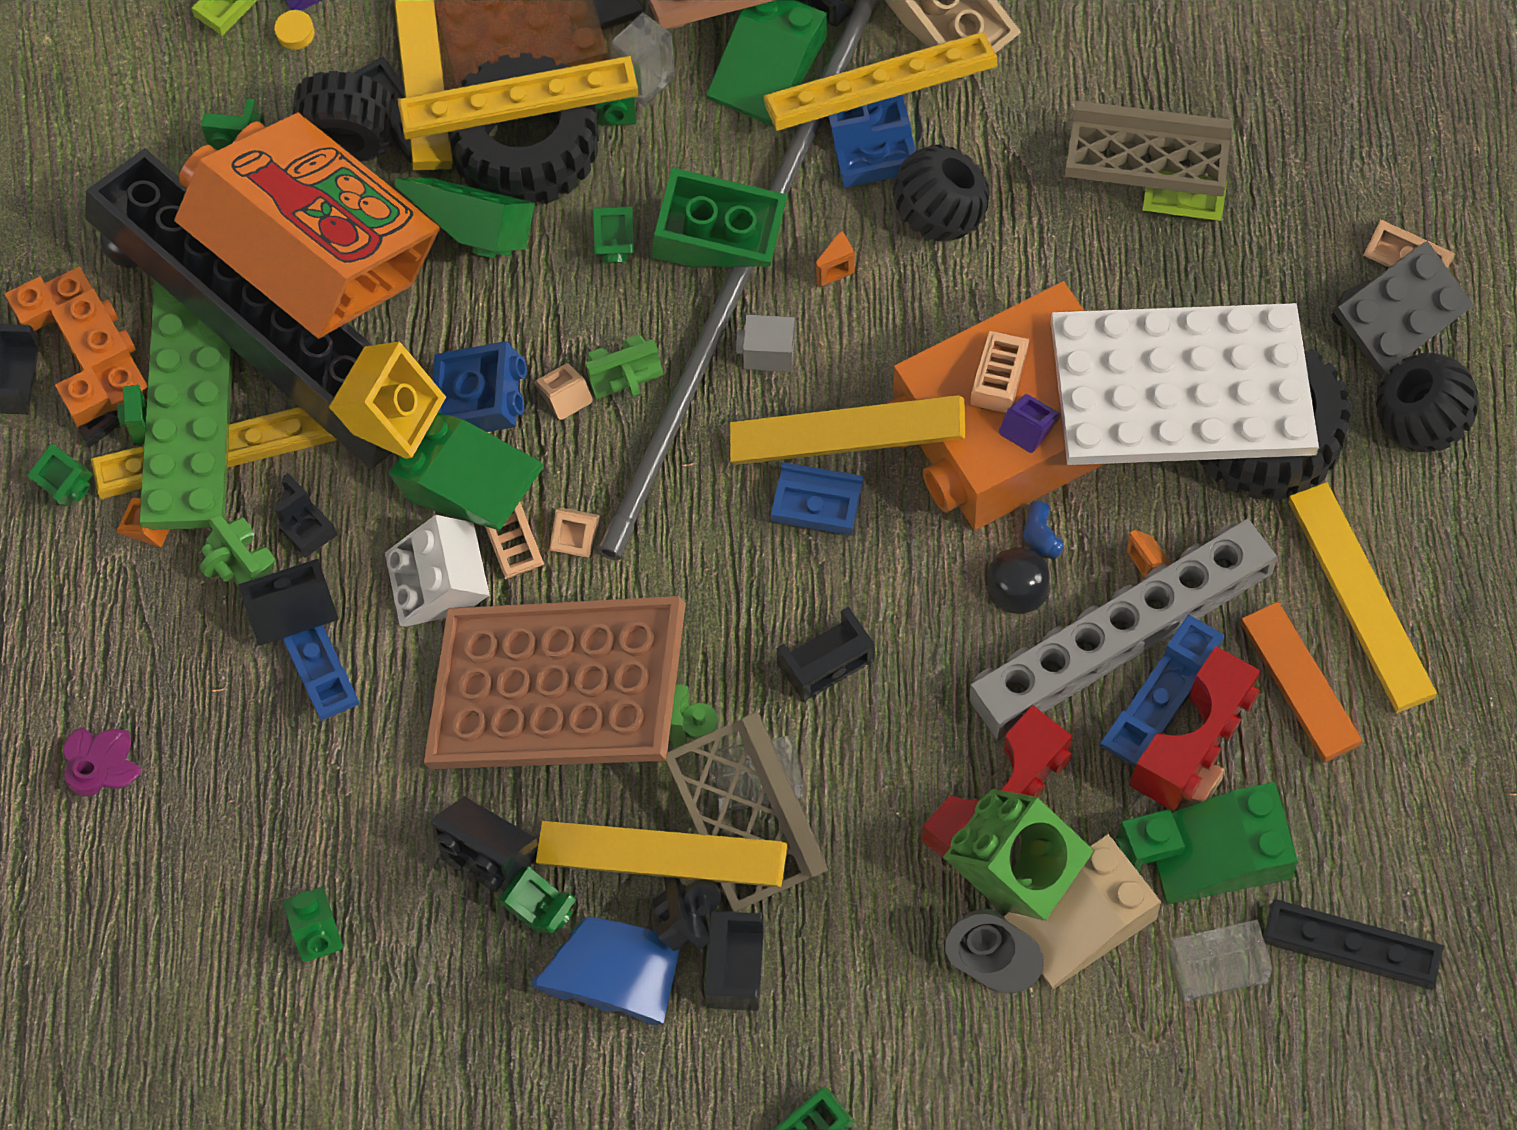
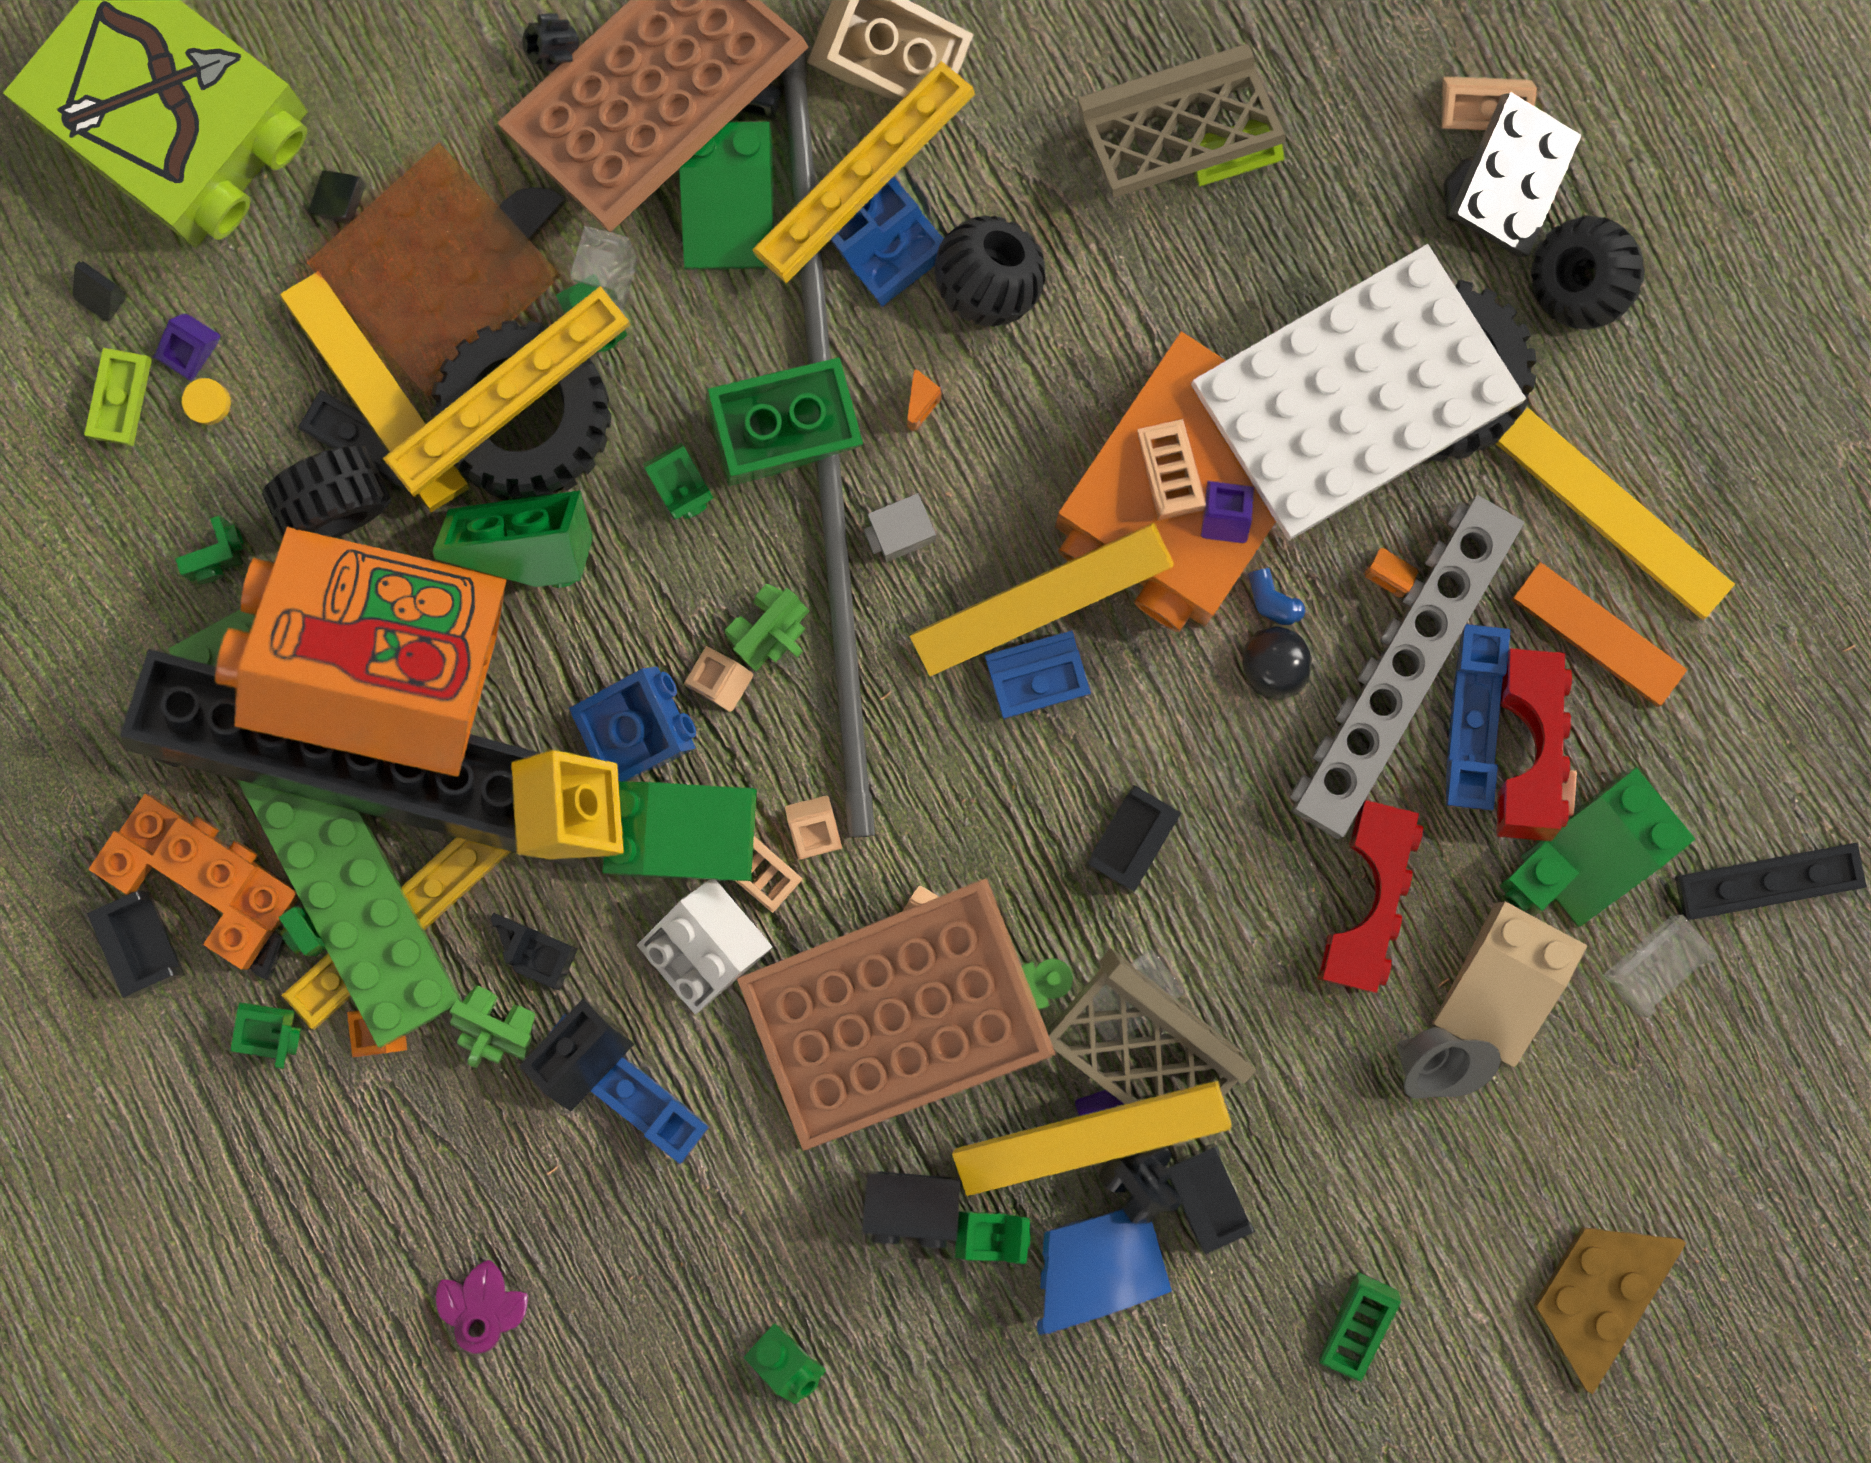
camera: 30 degrees left, 20 degrees up
(1047, 861) = (1434, 970): bright green brick -> none

